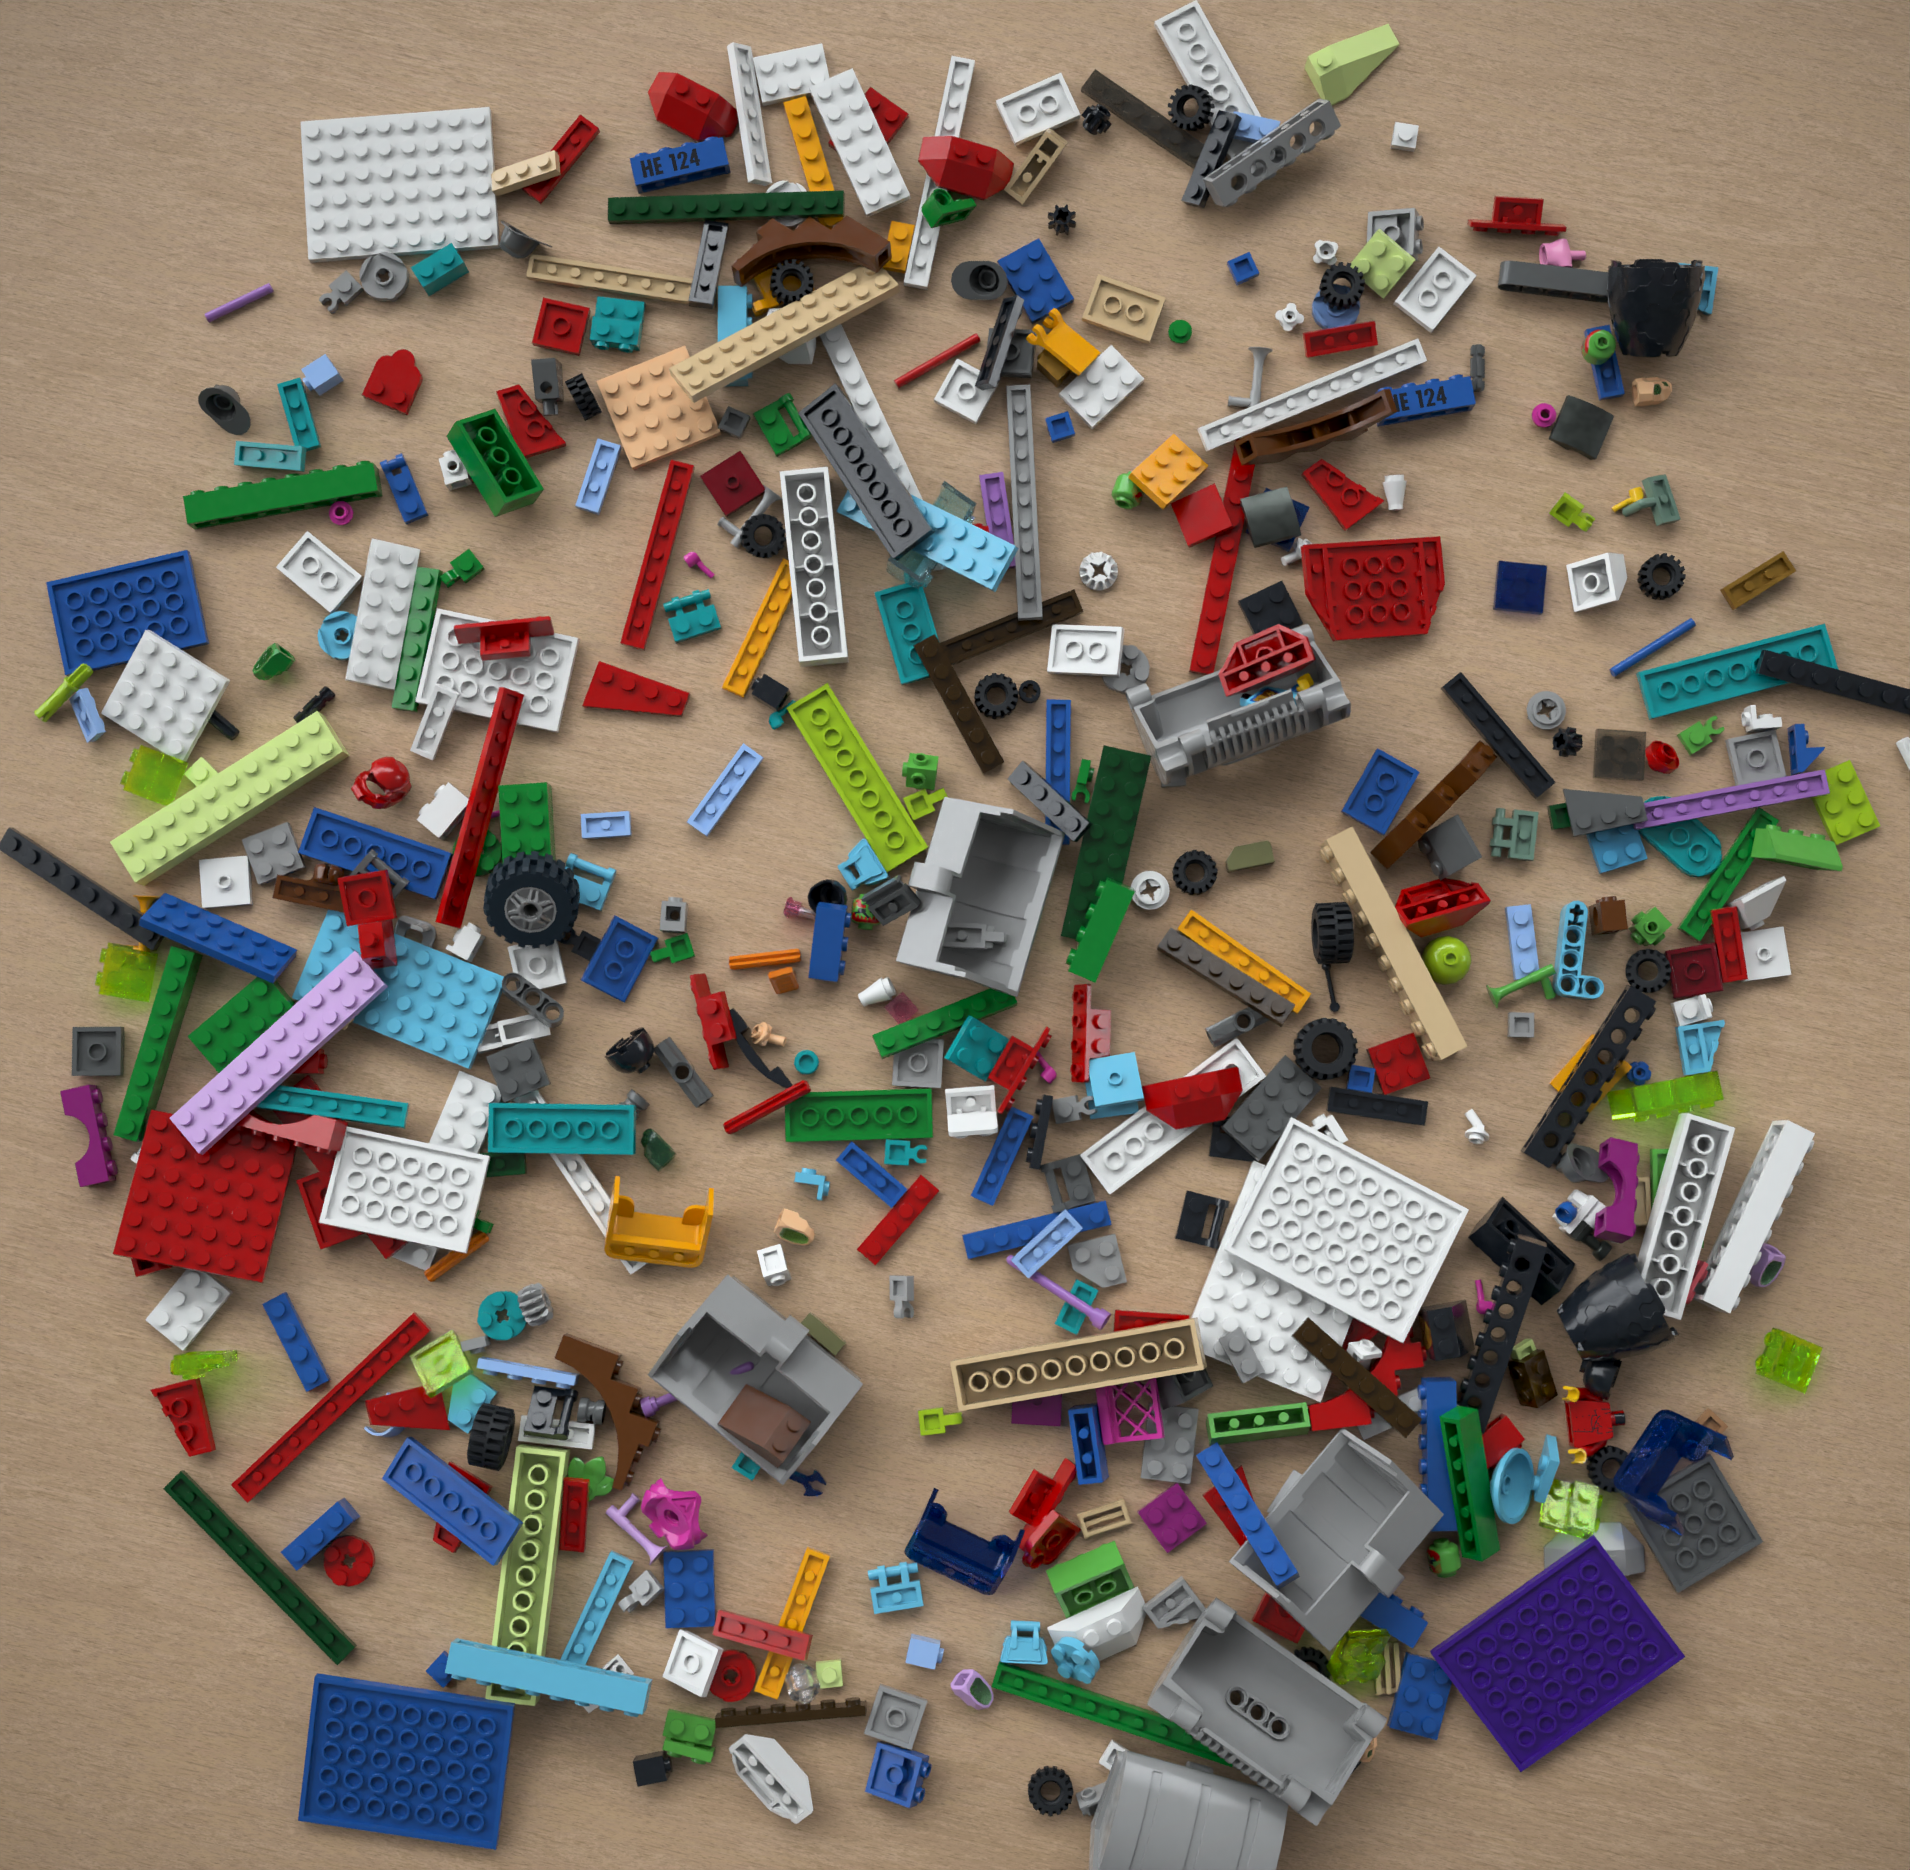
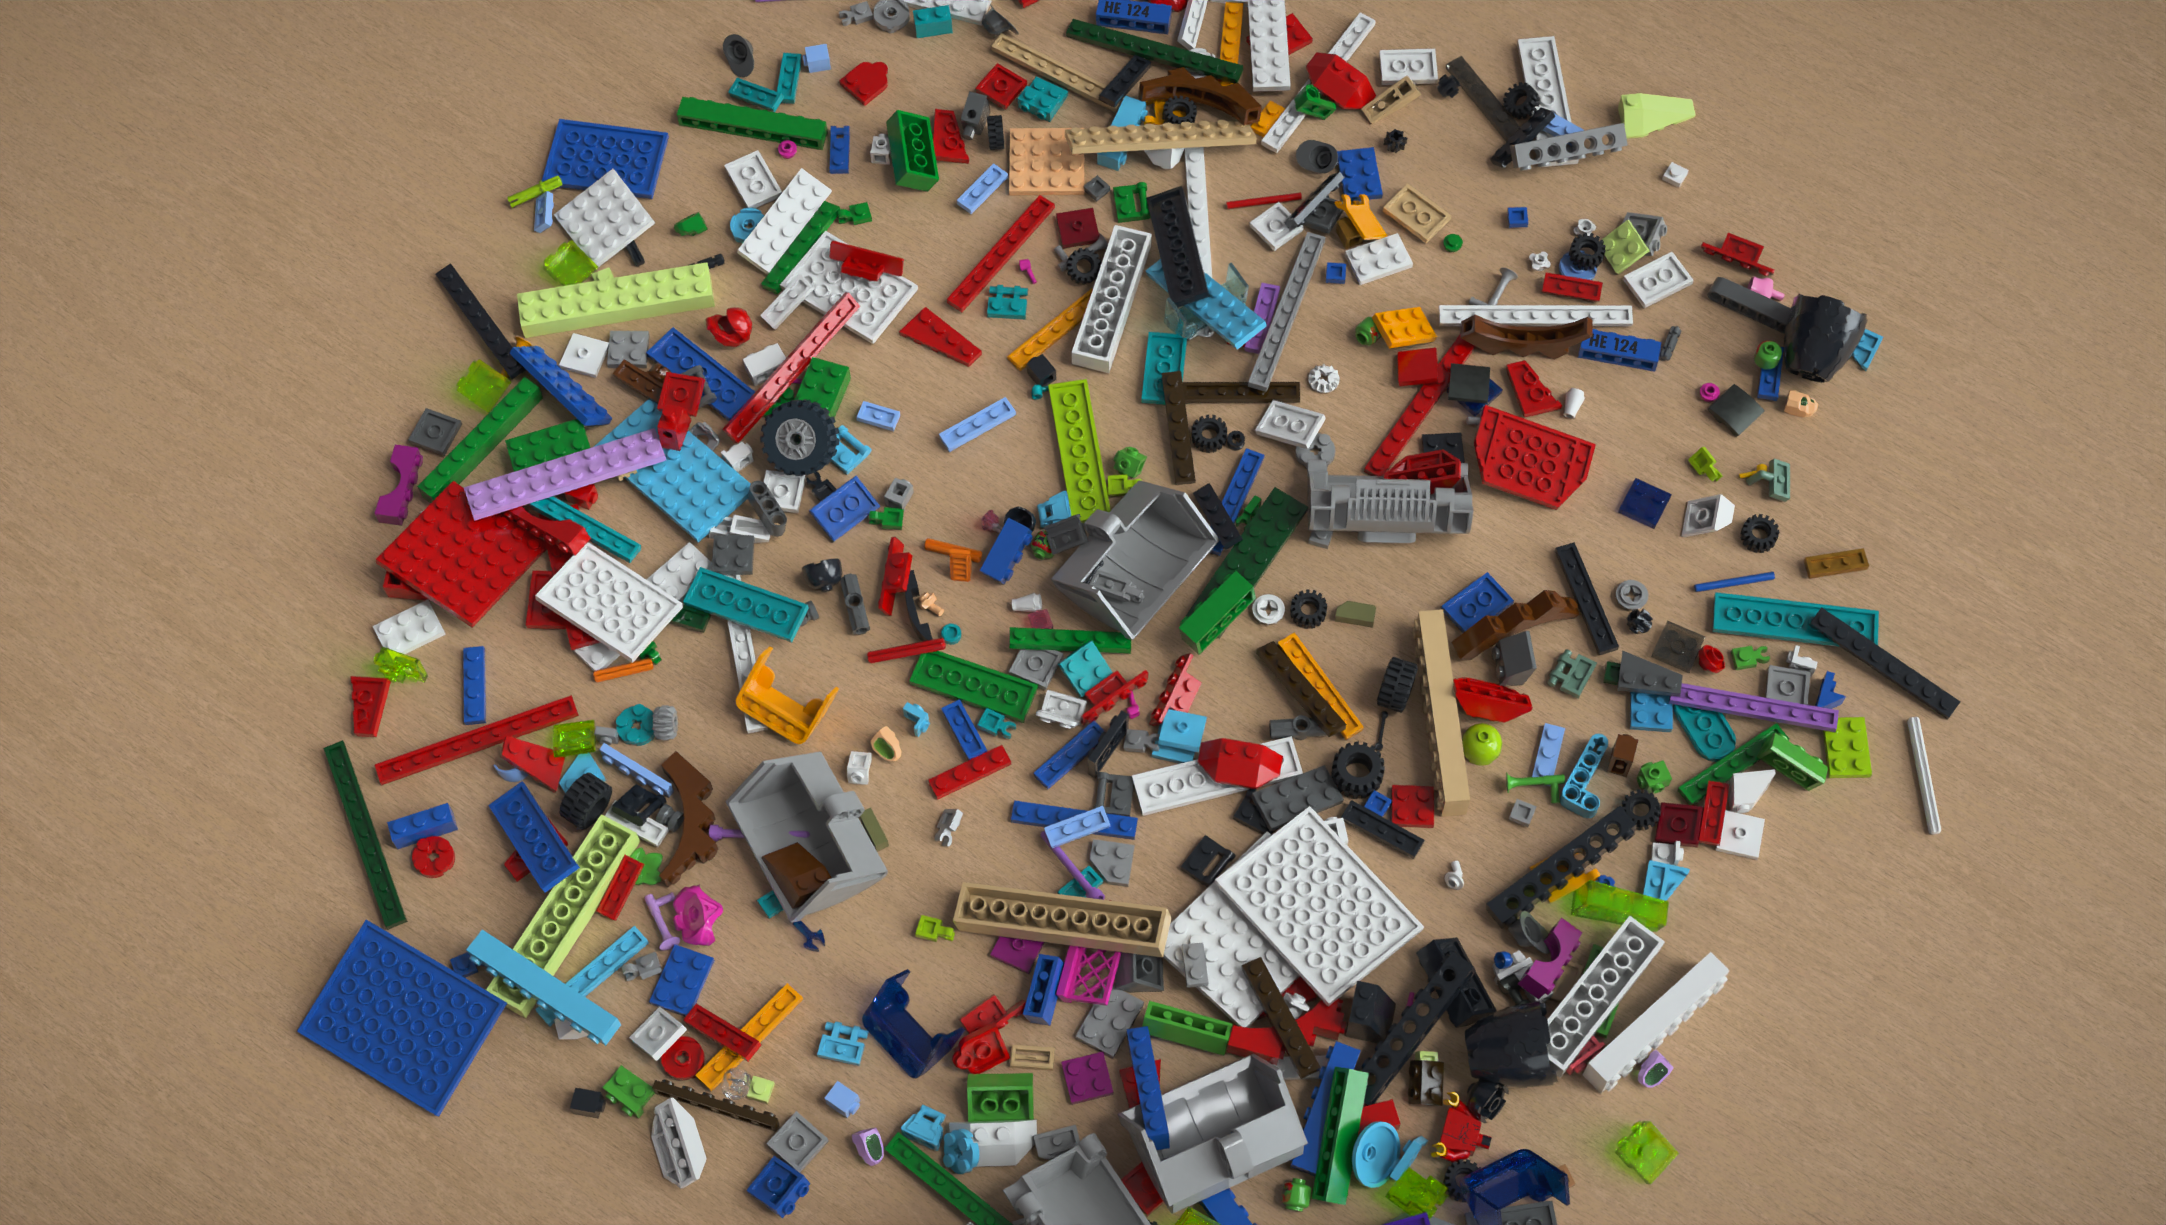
camera: 20 degrees right, 20 degrees down
(656, 1149) = (809, 651): clear green rock -> none

